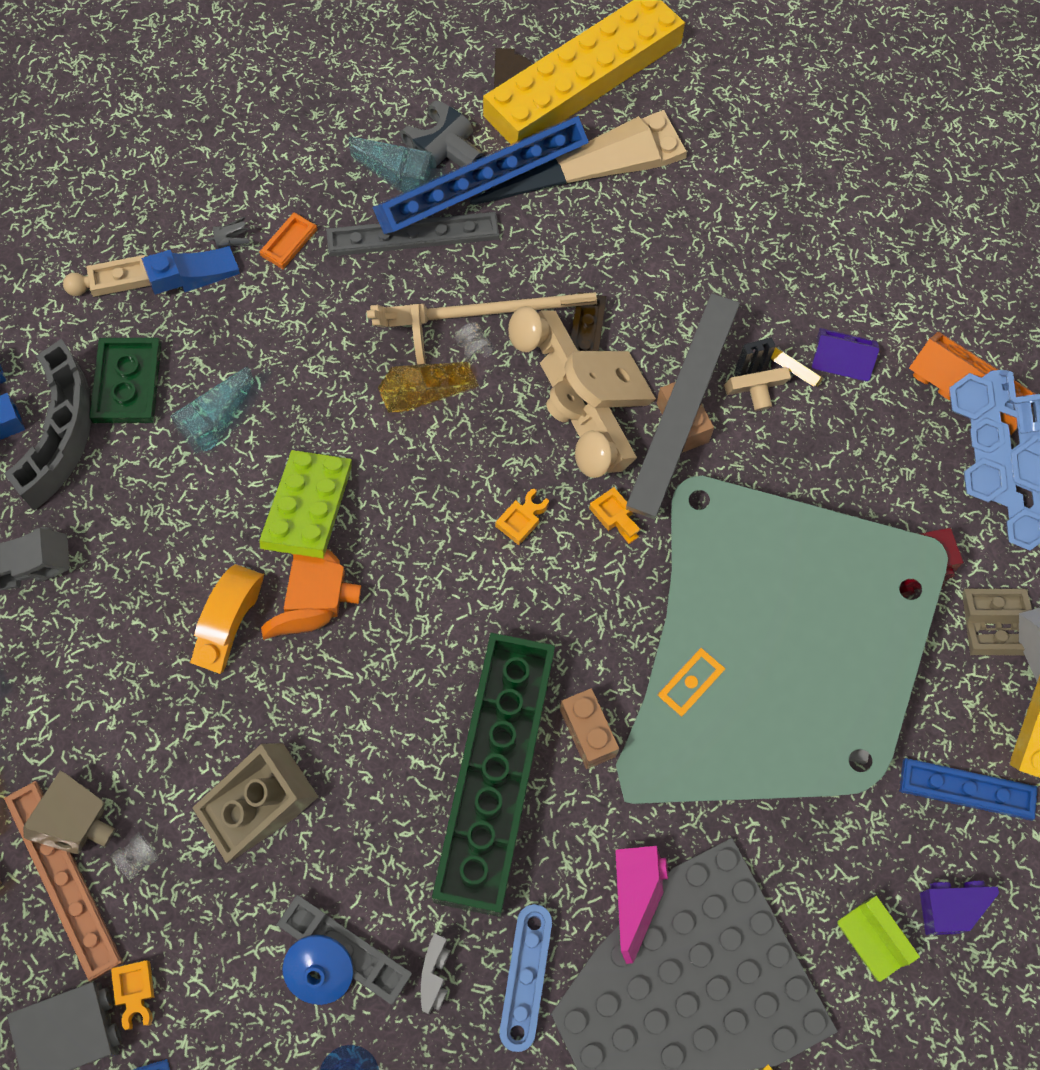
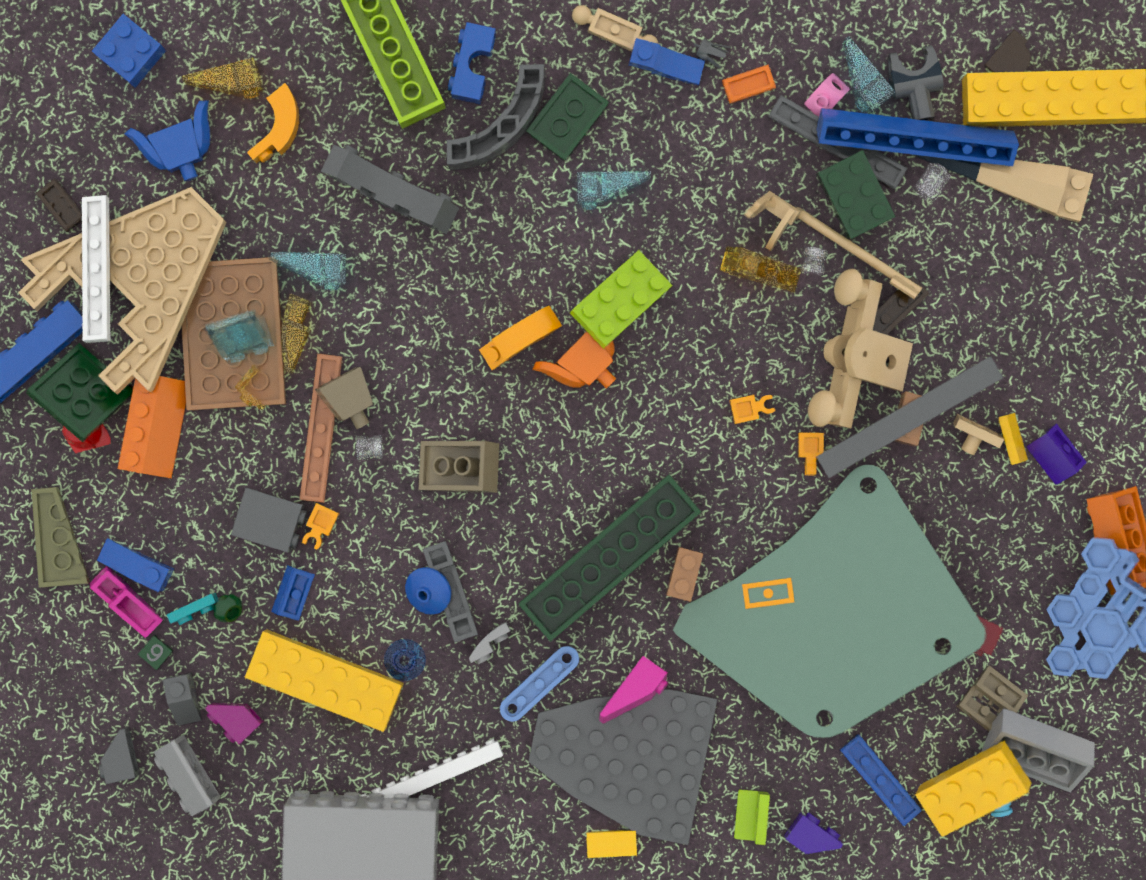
camera: 40 degrees right, 20 degrees up
(366, 198) = (826, 95): none -> bright pink bracket
(465, 258) = (855, 195): none -> dark green brick
(527, 207) = (931, 182): none -> clear brick
(759, 359) = (986, 416): black tile -> none

